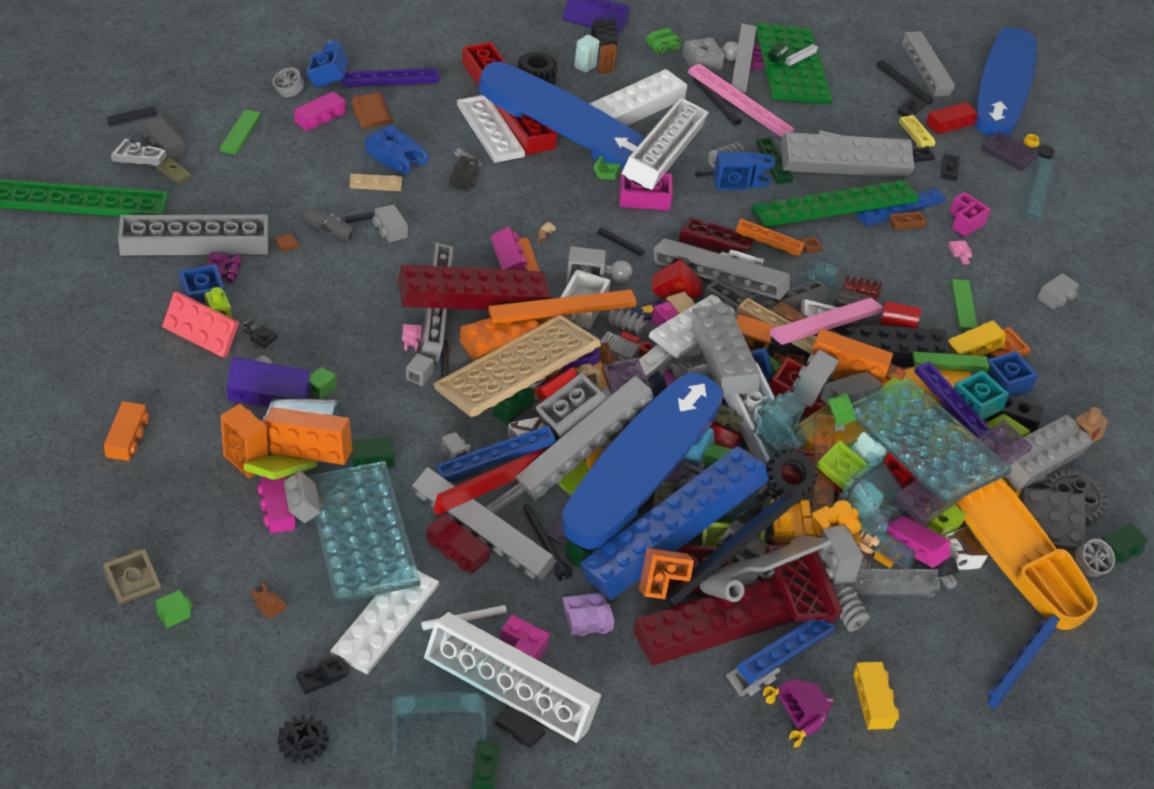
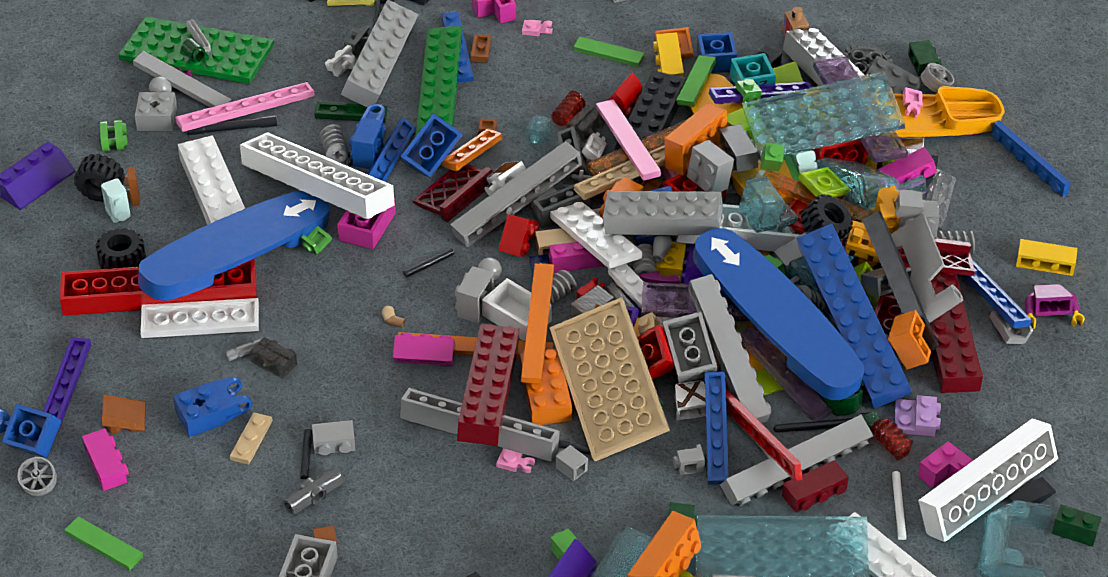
camera: 65 degrees left, 0 degrees up
(544, 594) = (892, 438): none -> clear red piece
(556, 568) = (871, 418): none -> clear green bush
(729, 190) = (392, 150): none -> blue plate
(749, 203) = (431, 146): none -> blue slope
(834, 525) = (909, 204): none -> light grey brick
(945, 392) = (749, 90): none -> bright green bracket
(1029, 530) = (913, 101): none -> bright pink plate

